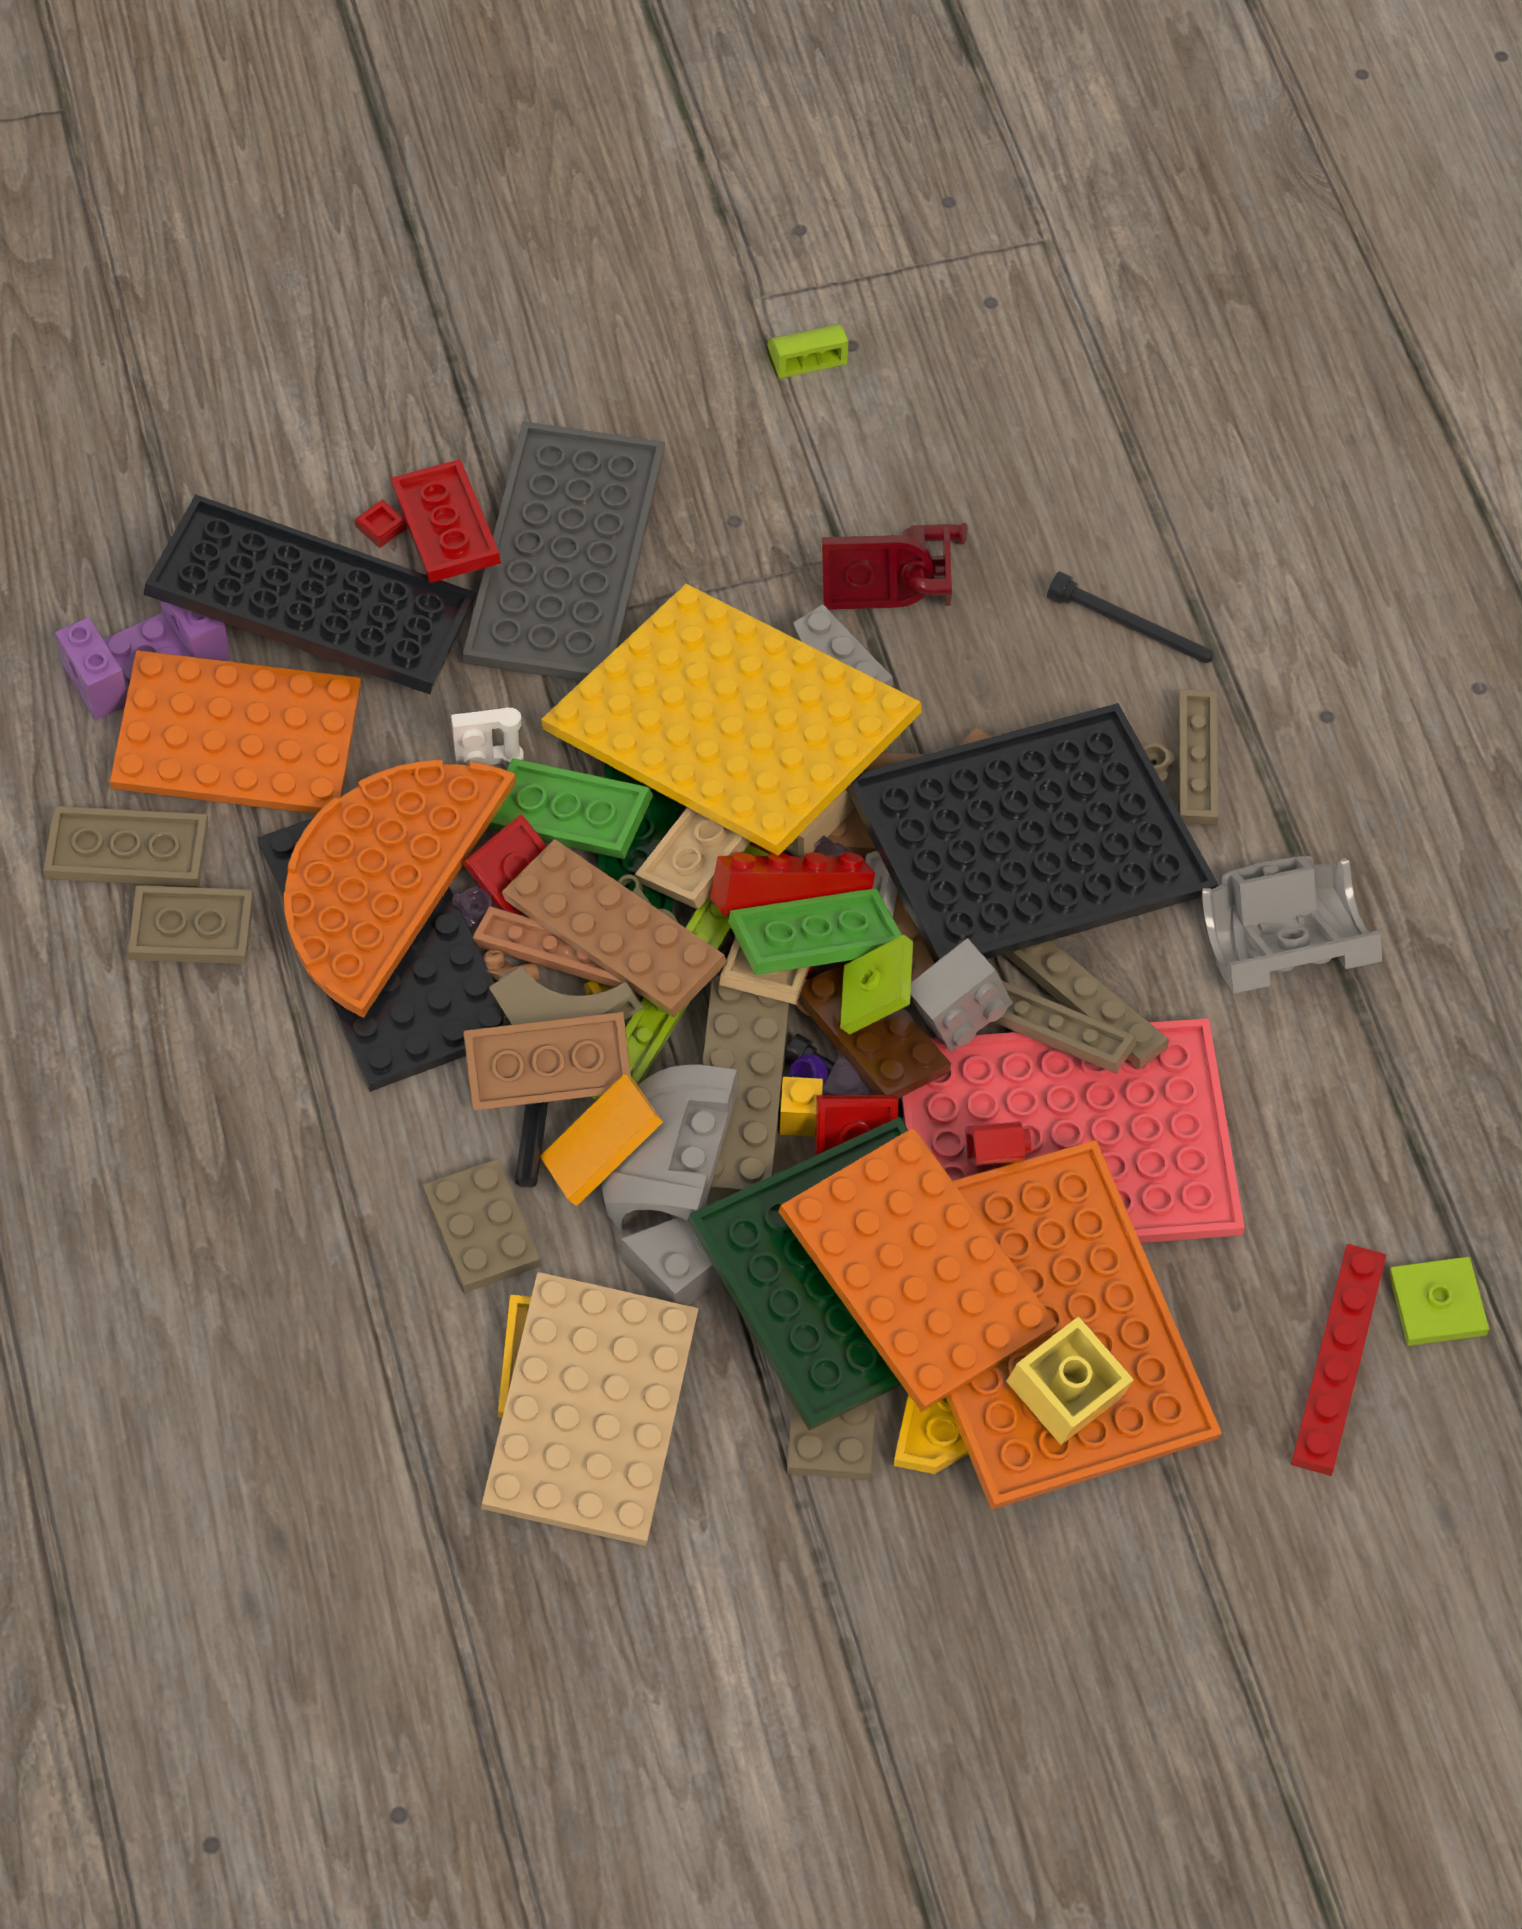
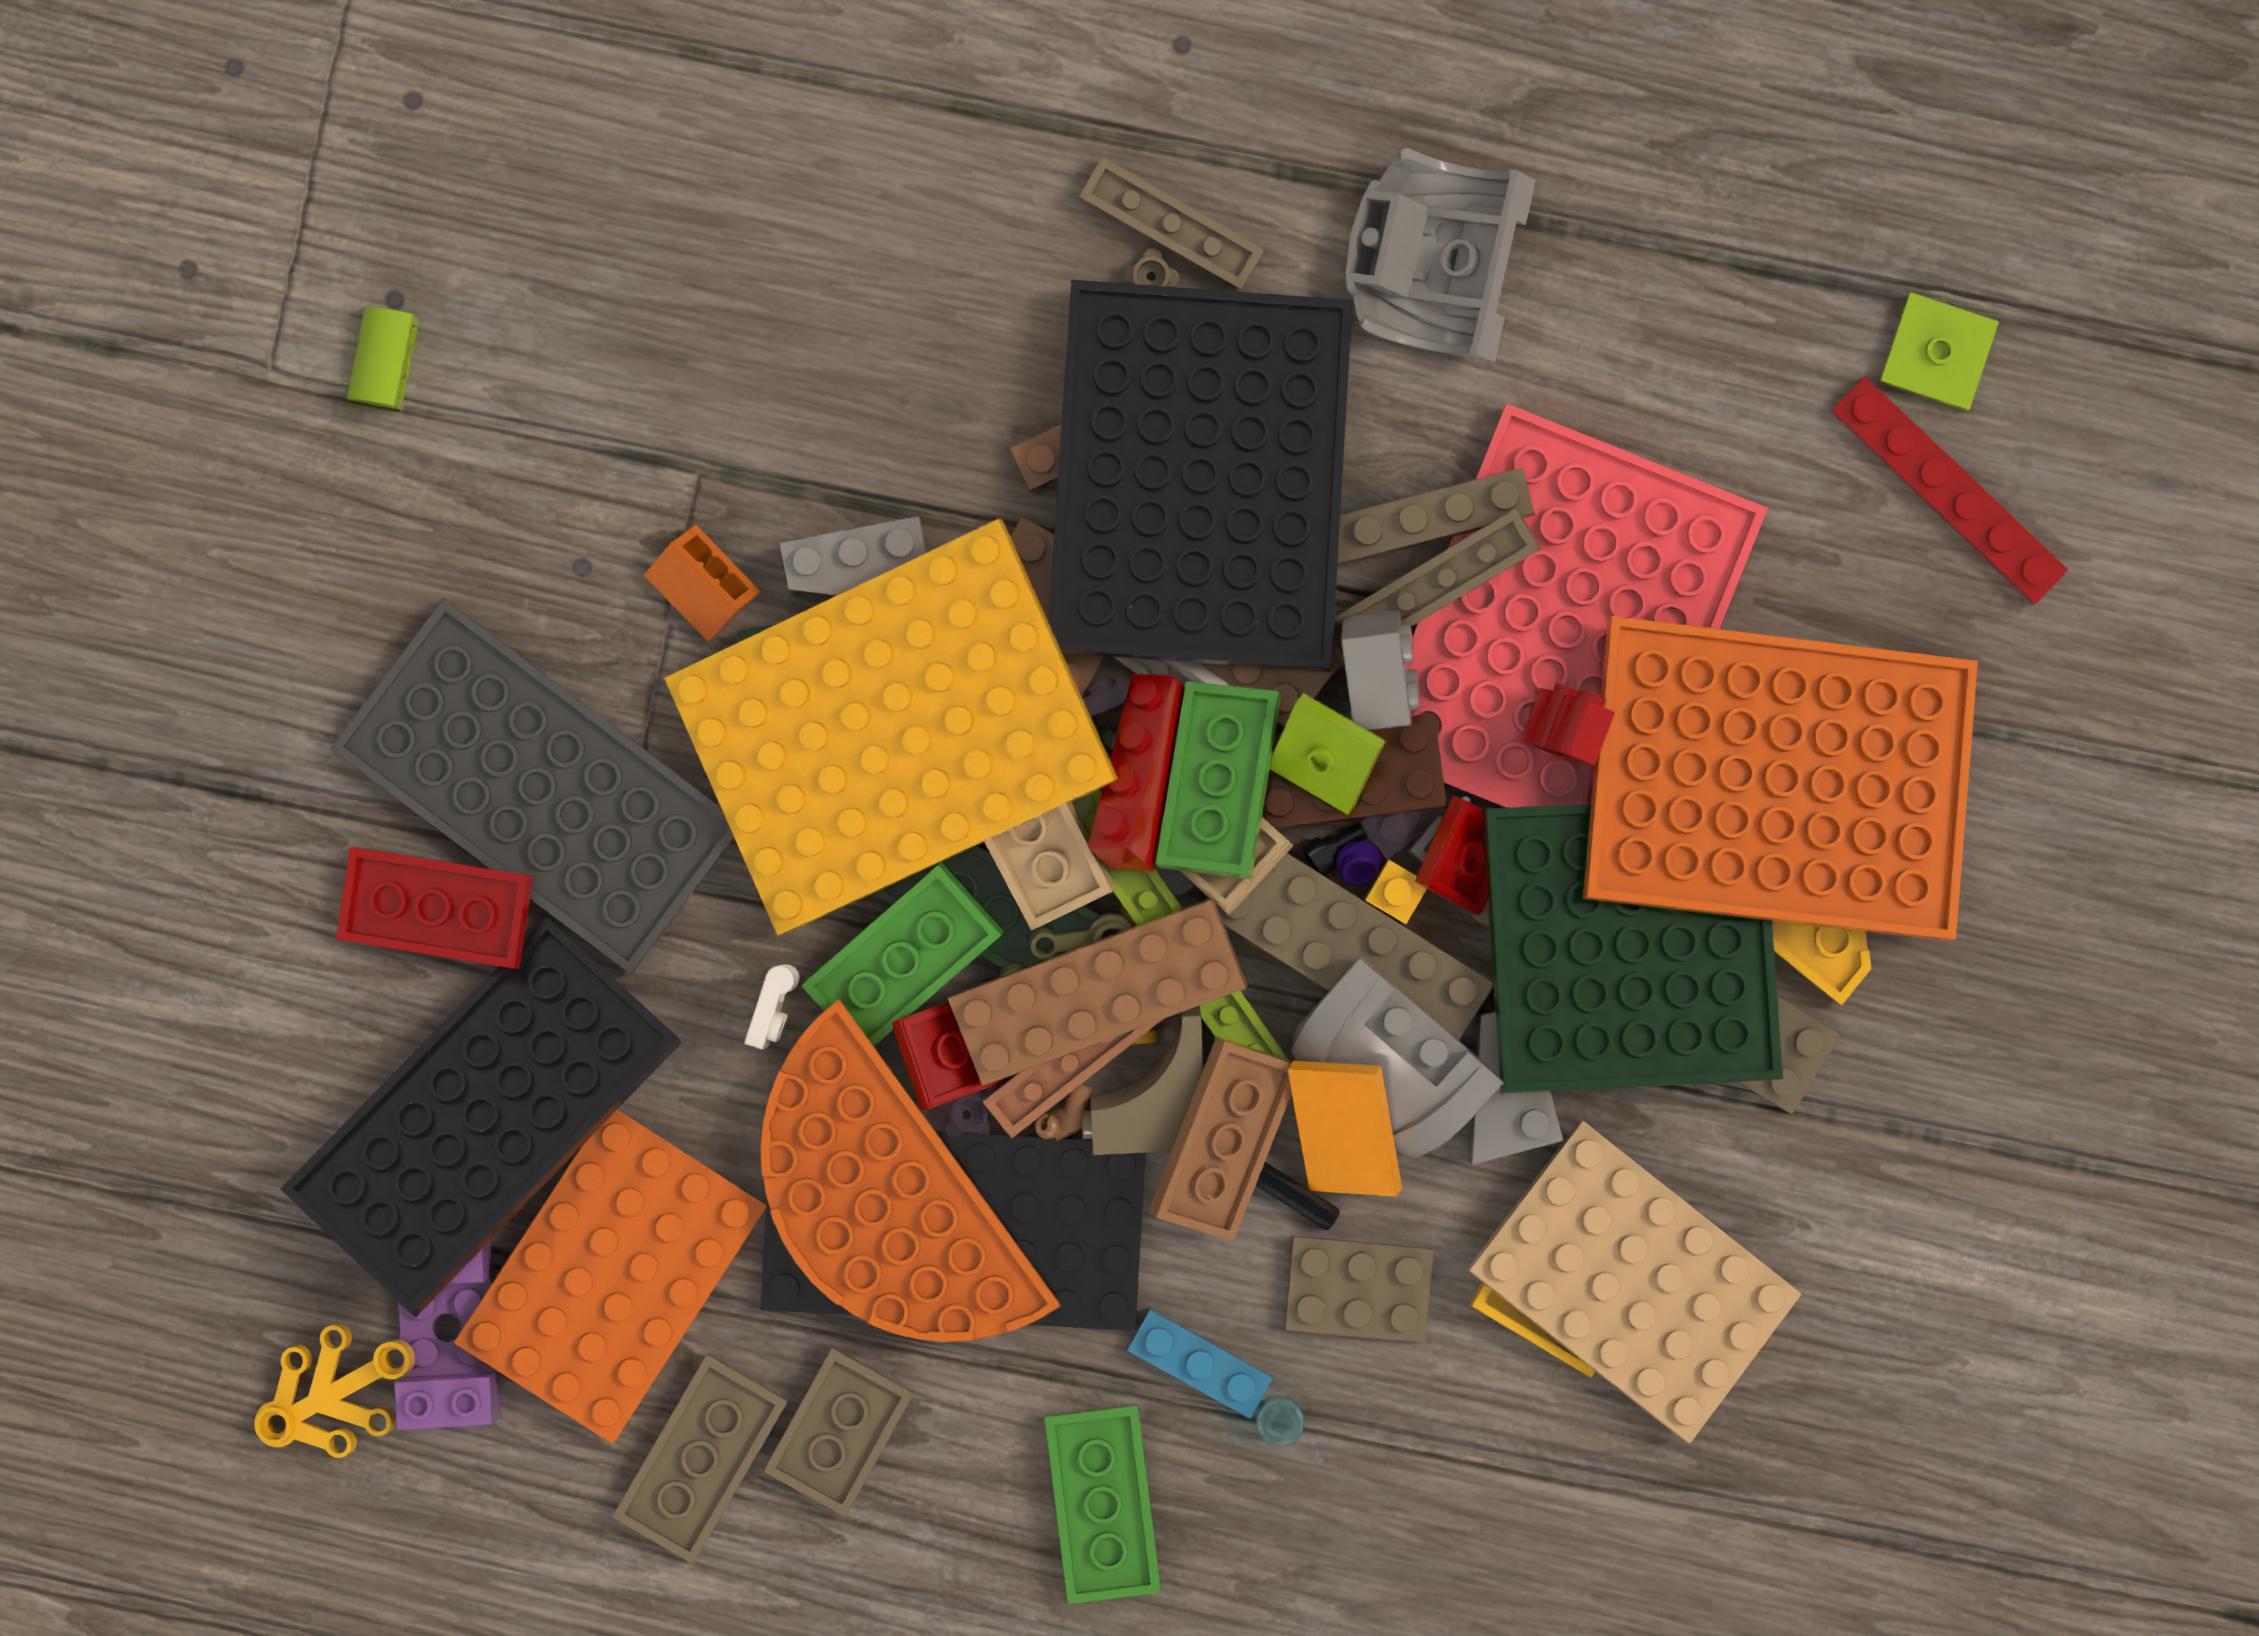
camera: 60 degrees left, 30 degrees up
(24, 585) = (327, 1396): none -> yellow plant
(222, 1120) = (1102, 1504): none -> bright green plate
(345, 1218) = (1277, 1413): none -> clear light blue wheel
(365, 1142) = (1200, 1363): none -> dark azure plate
(380, 523) = (387, 976): red tile -> none
(767, 584) = (701, 582): none -> orange brick
(888, 568) = (770, 433): dark red plate -> none
(917, 1269) = (1680, 889): orange plate -> none
(1065, 589) = (877, 245): black piece -> none
(1069, 1380) = (1879, 800): light yellow brick -> none

